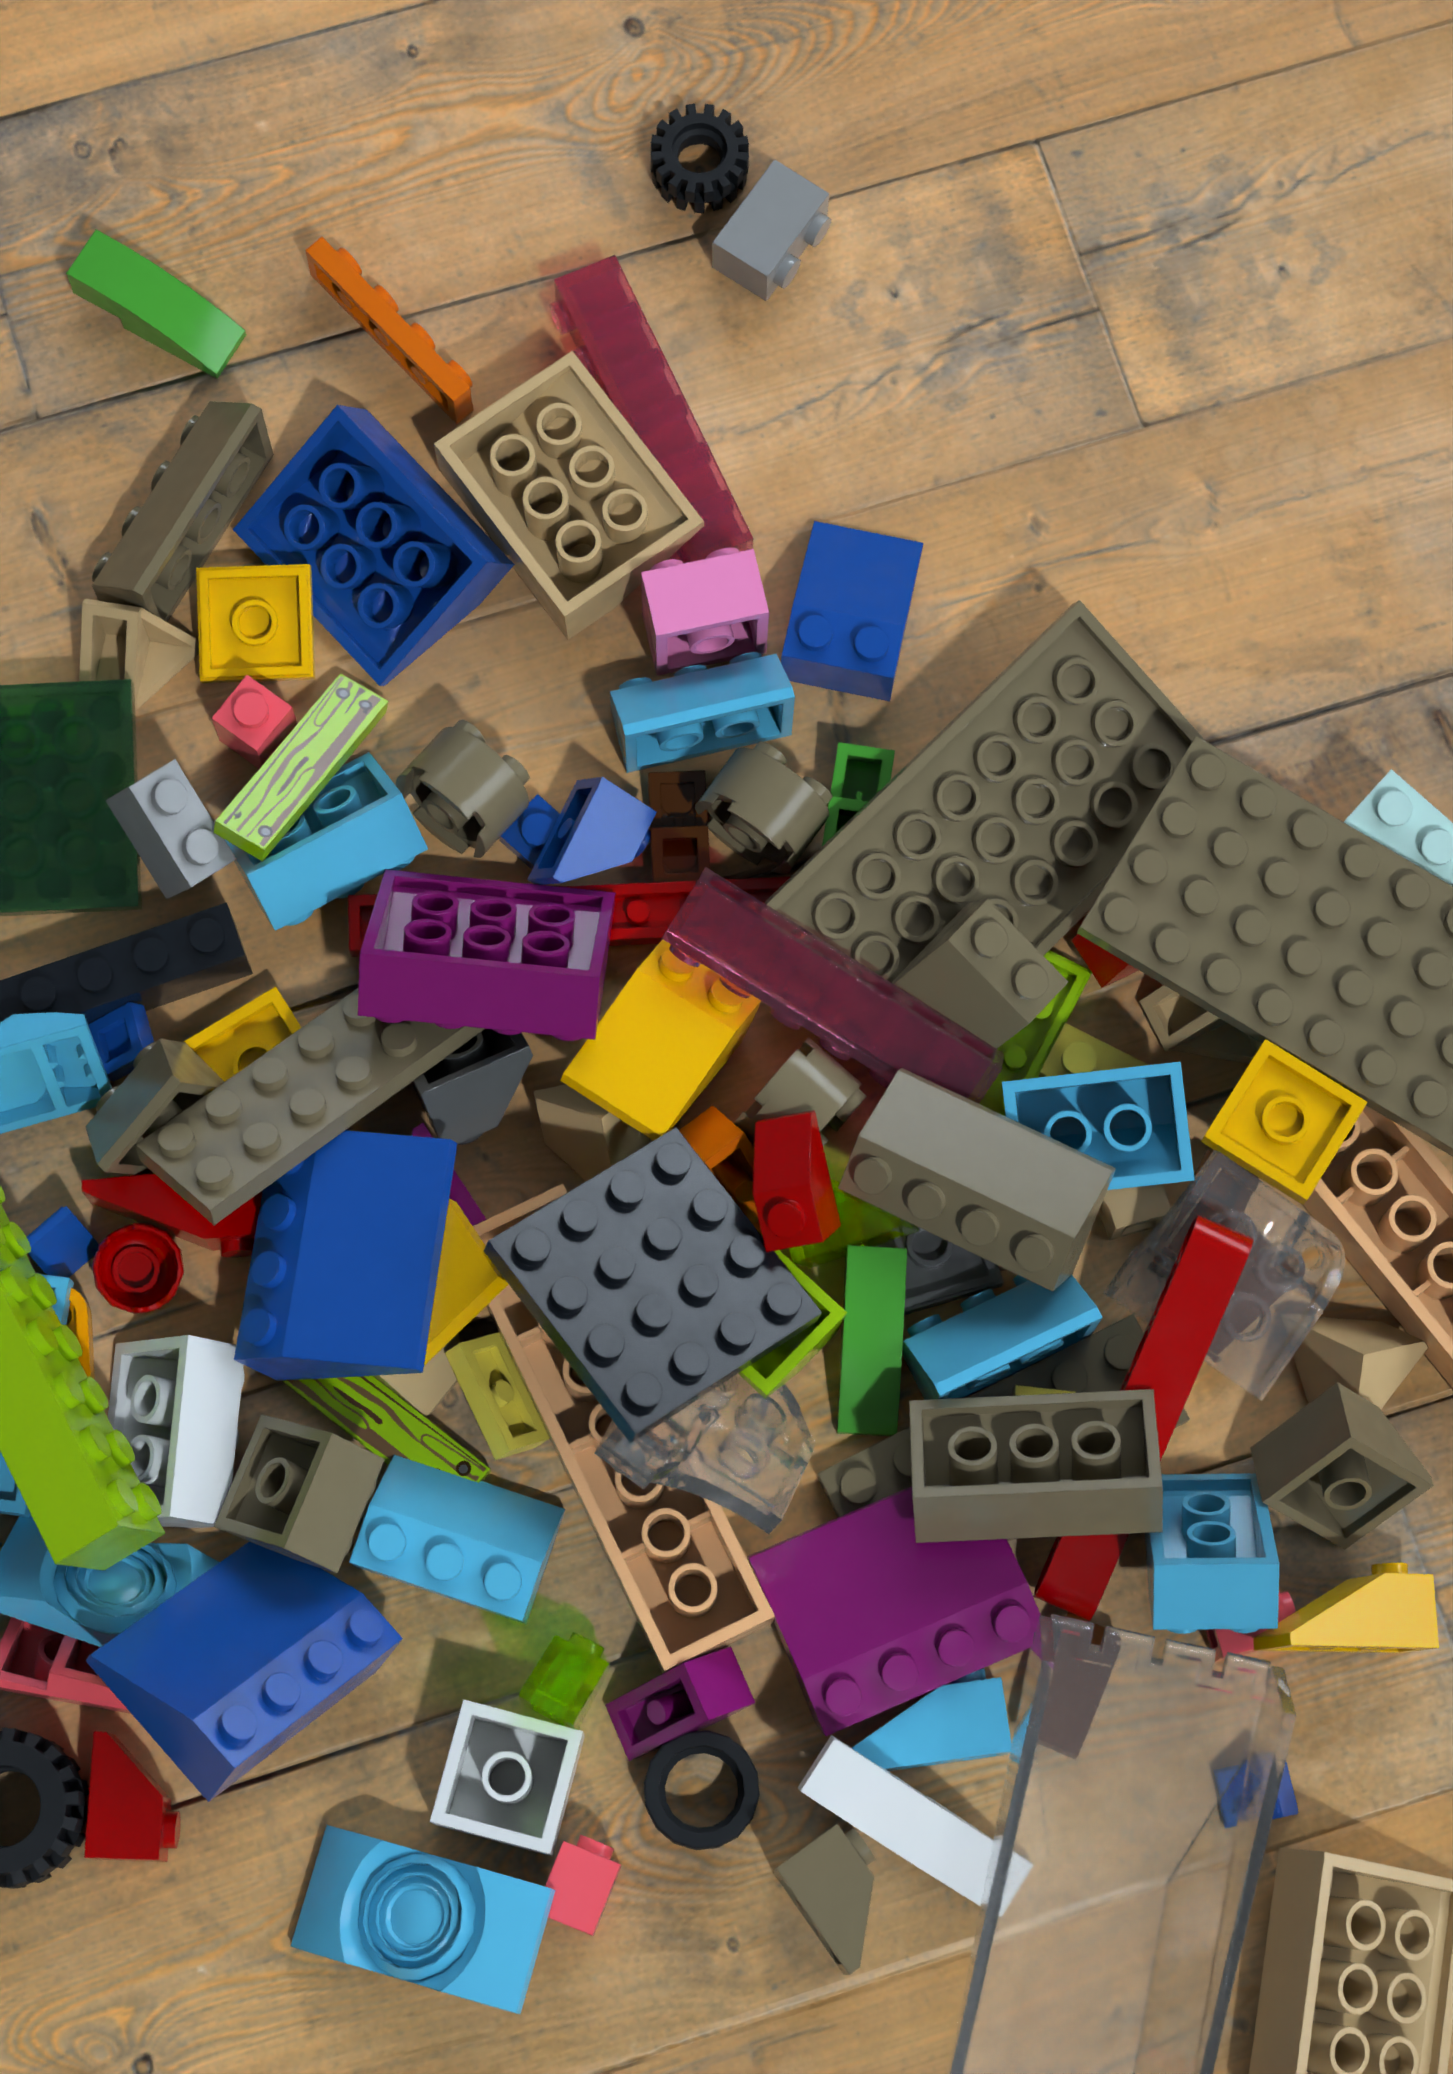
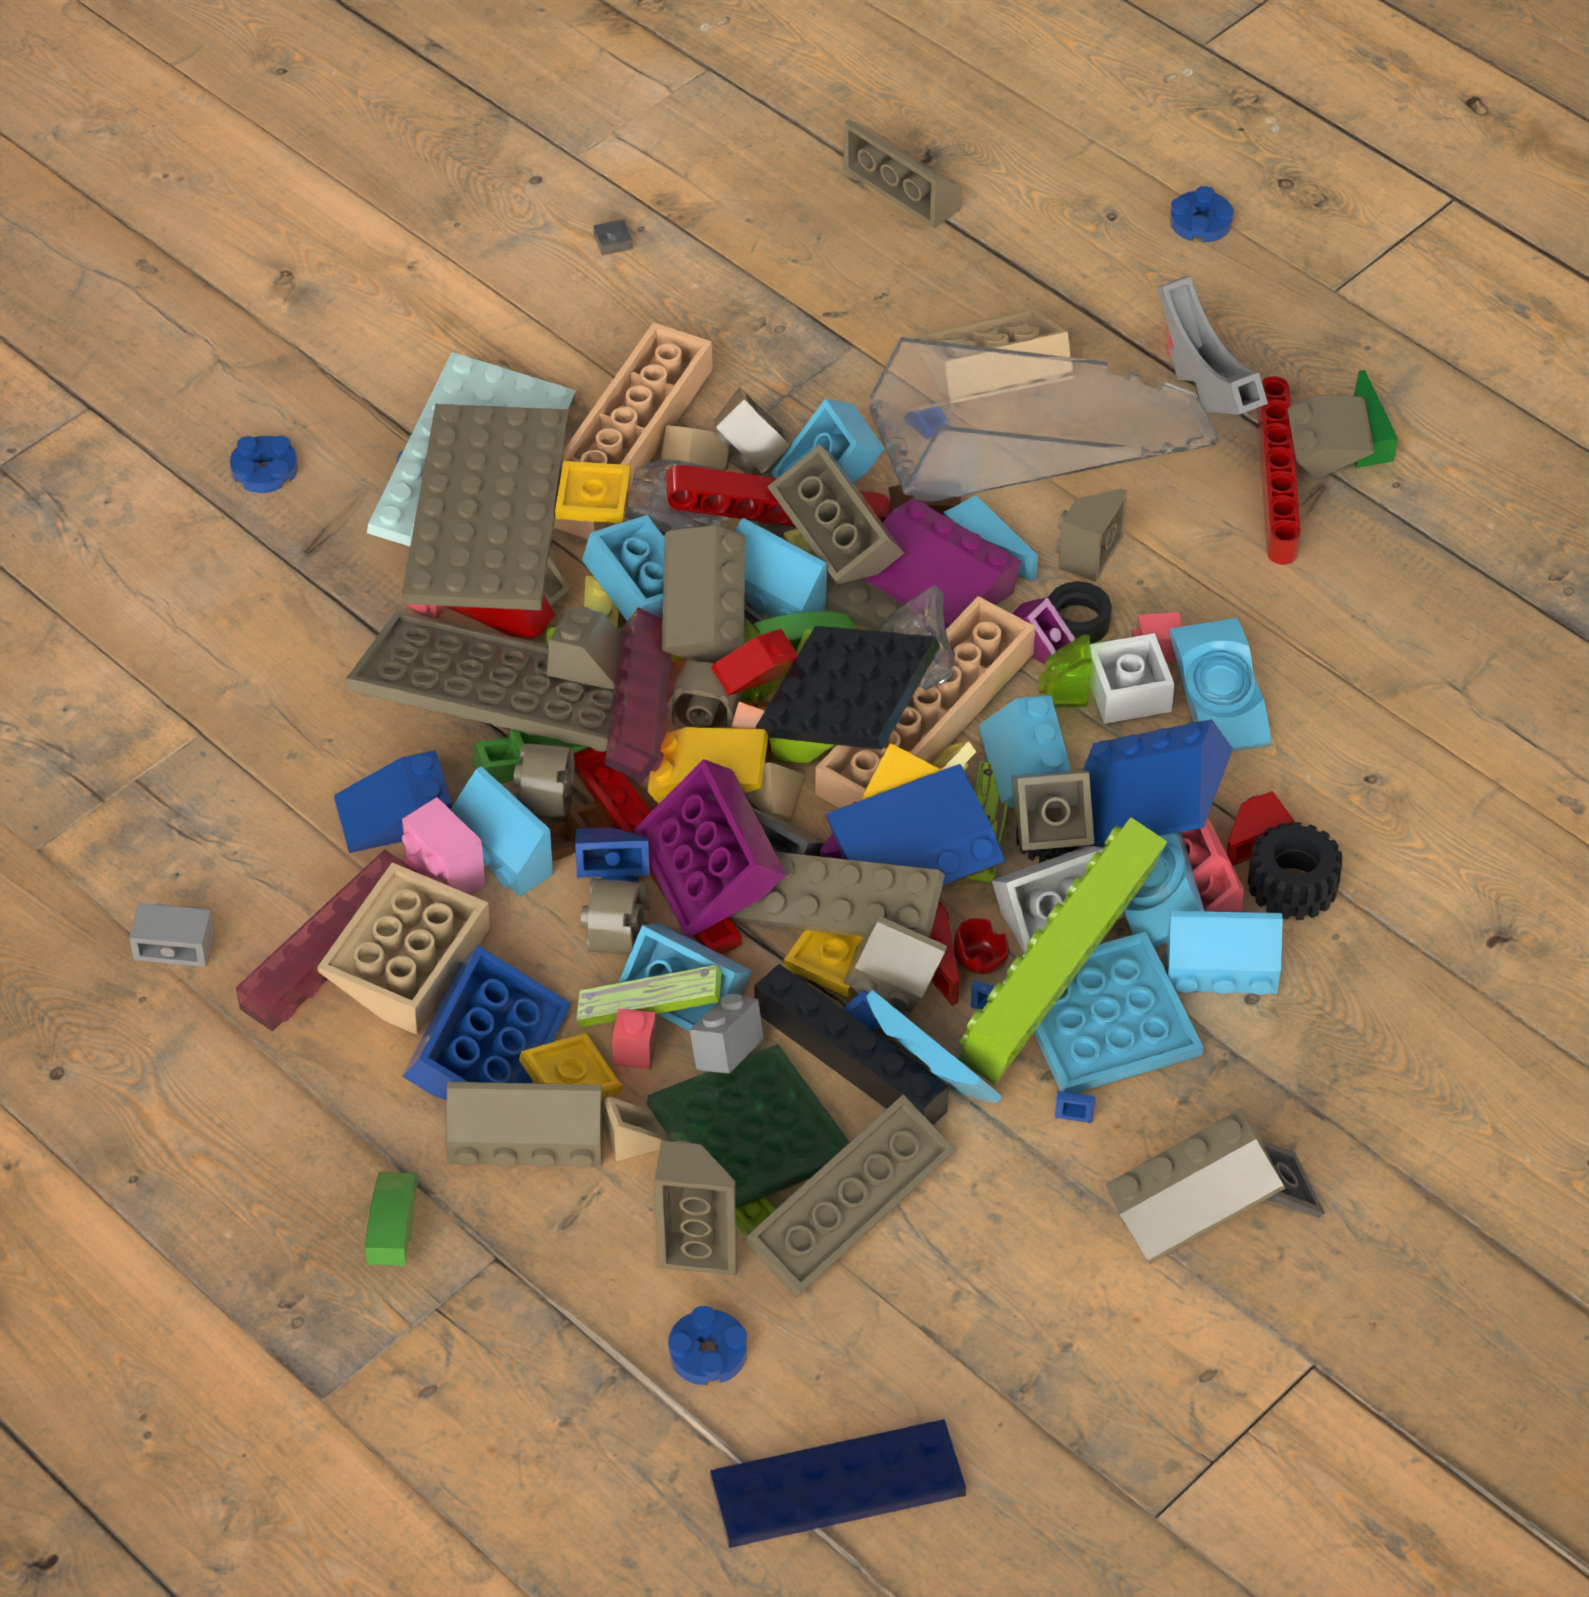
camera: 115 degrees left, 25 degrees down
(405, 343) = (344, 1084): orange plate -> none
(694, 130) = (143, 1007): black tyre -> none
(900, 1818) = (1038, 519): white slope -> none
(1363, 1615) = (808, 390): yellow slope -> none

